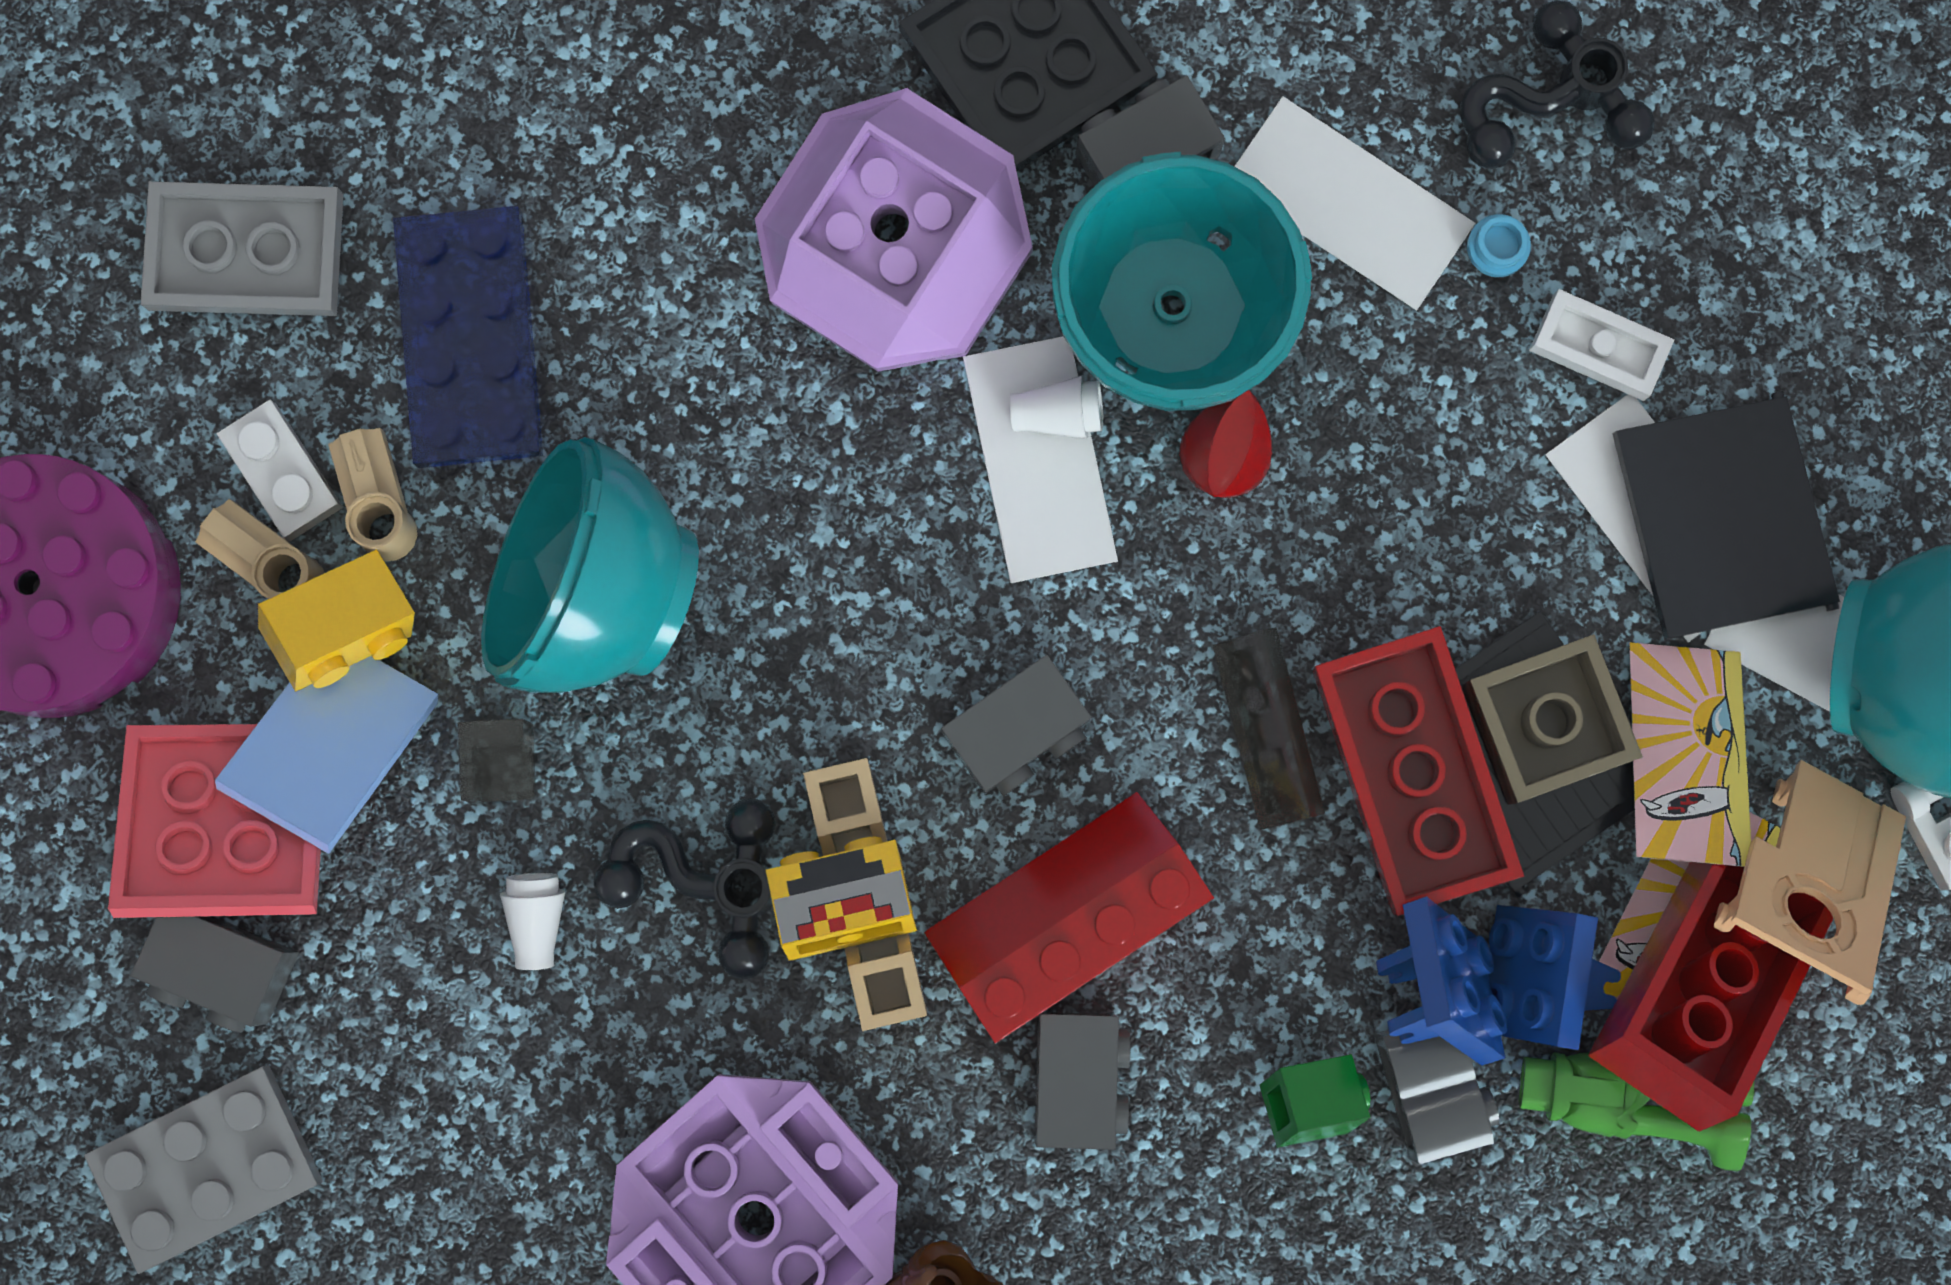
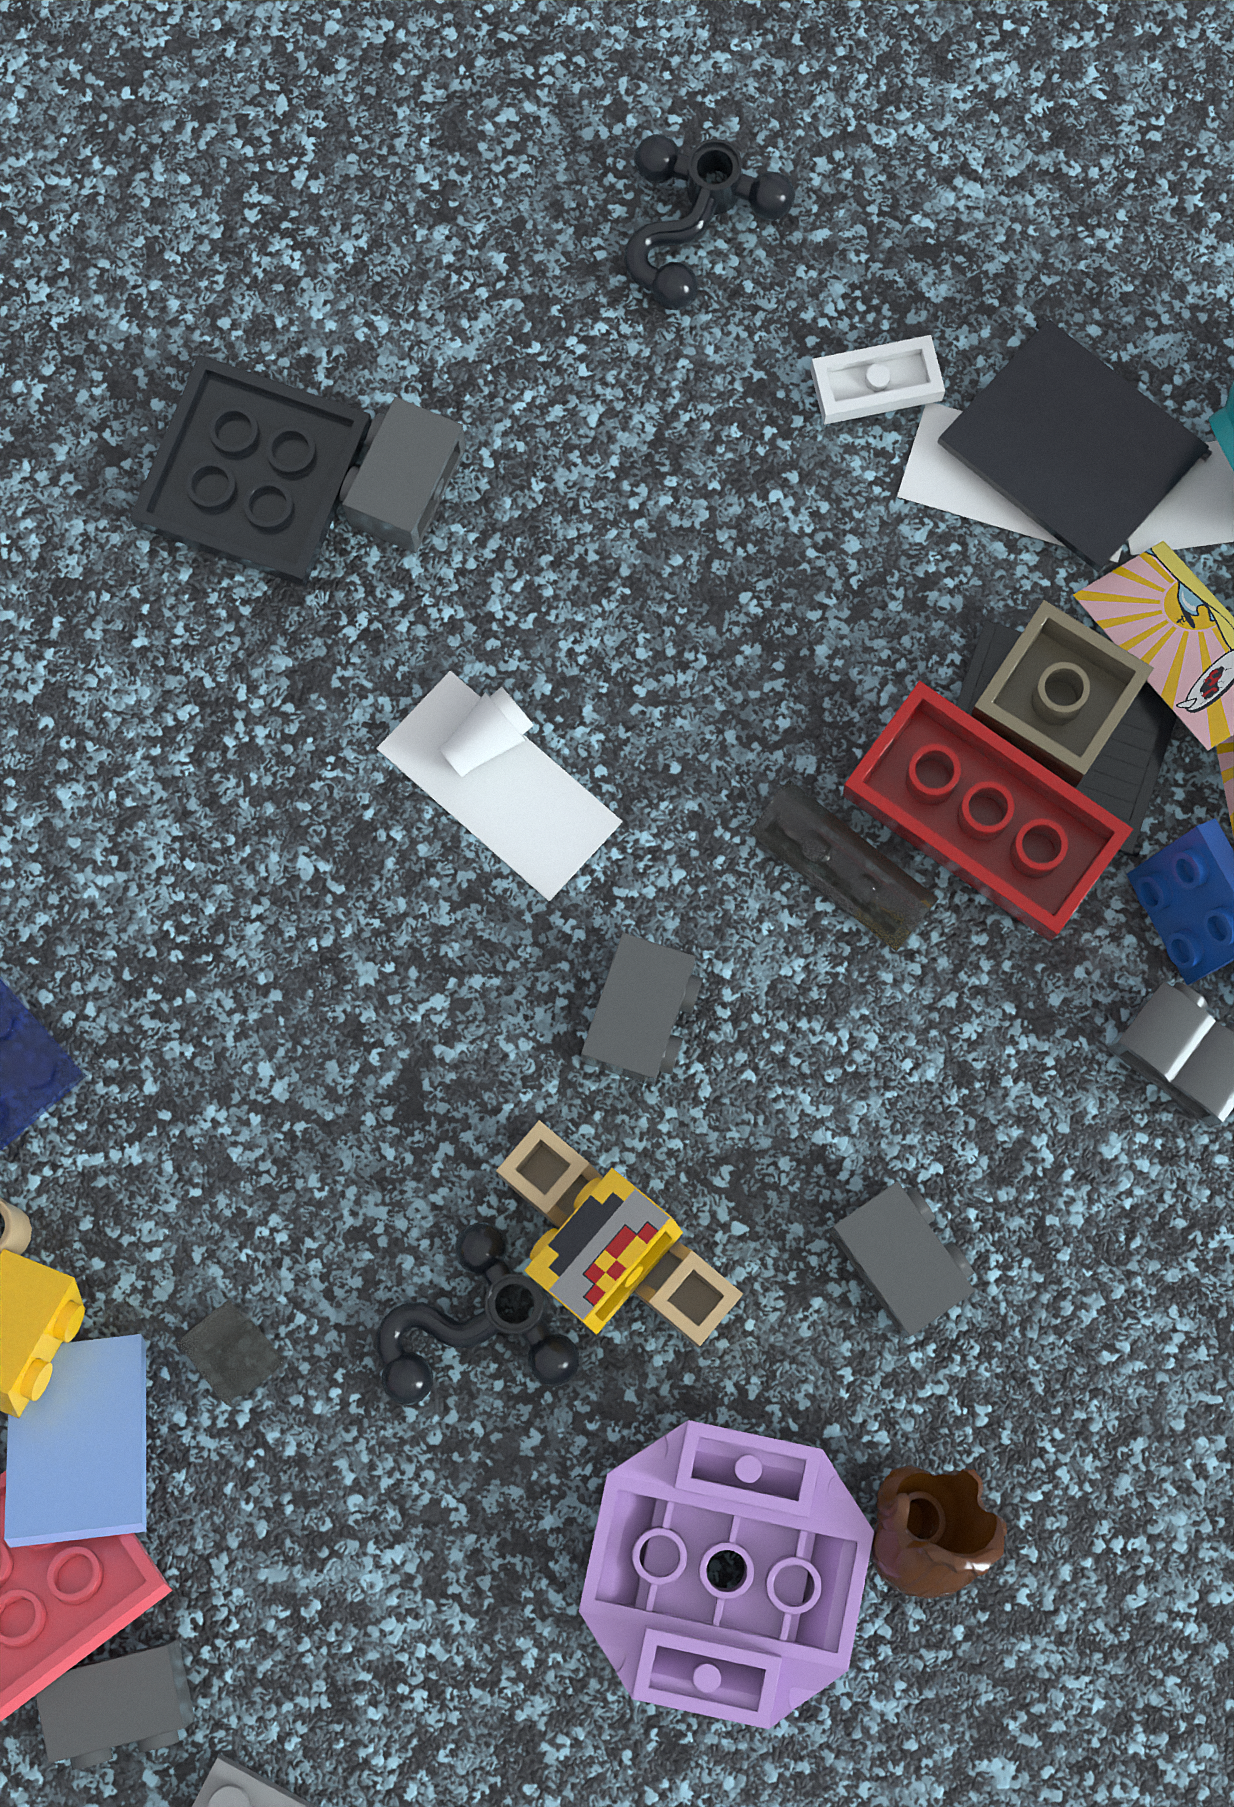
camera: 30 degrees left, 5 degrees down
(533, 917) = (356, 1460): white cone -> none
(587, 576) = (197, 1139): teal piece -> none
(905, 296) = (287, 738): lavender piece -> none
(1068, 916) = (795, 1133): red slope -> none
(1146, 240) = (457, 549): teal piece -> none
(1228, 447) = (643, 667): red piece -> none
(1315, 1100) = (1103, 1133): green brick -> none
(1355, 203) = (596, 410): white sticker -> none
(1452, 984) = (1140, 953): blue plate -> none
(1498, 245) = (739, 360): medium azure plate -> none

